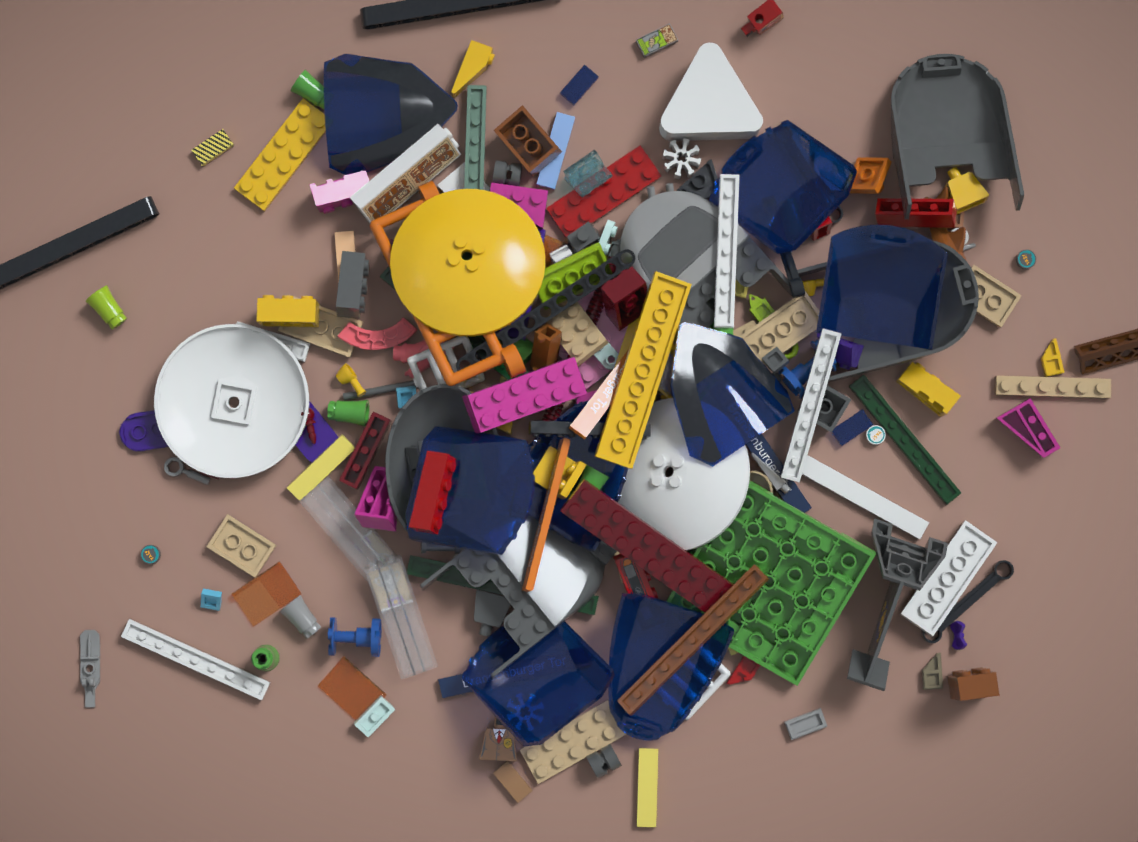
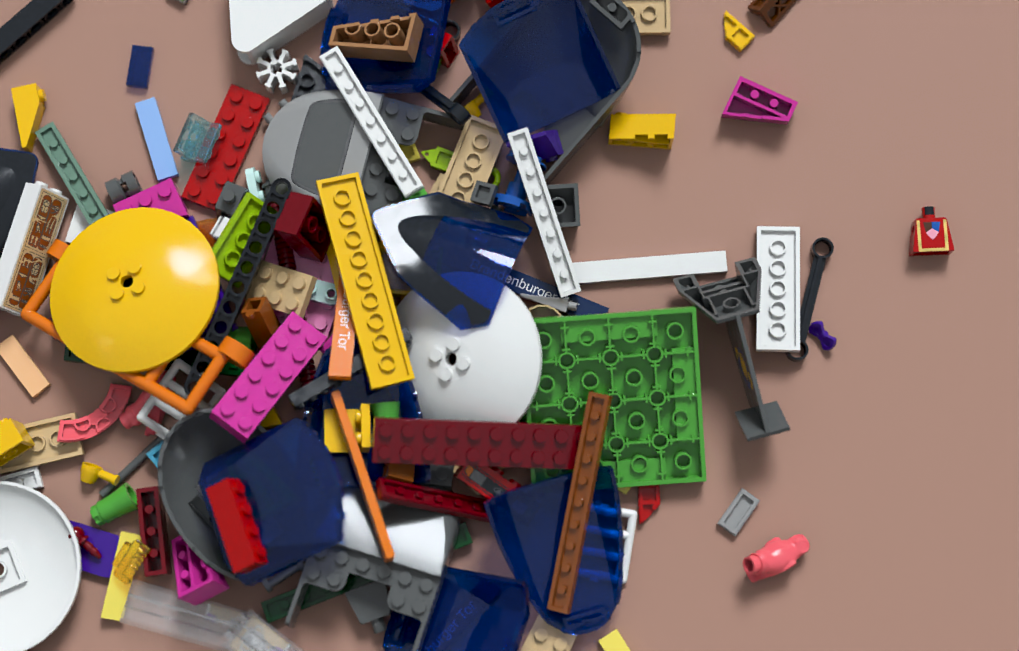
camera: 25 degrees left, 5 degrees down
(334, 457) = (126, 557): none -> clear yellow piece
(352, 285) = (40, 384): dark grey brick -> none
(527, 141) = (123, 145): dark orange brick -> none
(571, 532) = (399, 472): none -> dark orange panel
(585, 565) = (431, 499): none -> dark red tile
(779, 193) = (380, 40): none -> medium nougat wedge
(810, 775) = (775, 557): none -> coral animal
(852, 427) = (596, 211): clear blue tile -> none
(875, 435) = (622, 203): white tile -> none
(905, 440) = (652, 190): dark green tile -> none
(932, 674) = (823, 386): dark tan tile -> none
(973, 684) = (867, 369): dark orange brick -> none
(1052, 387) = (753, 55): tan plate -> none
(1092, 614) = (930, 235): none -> red torso

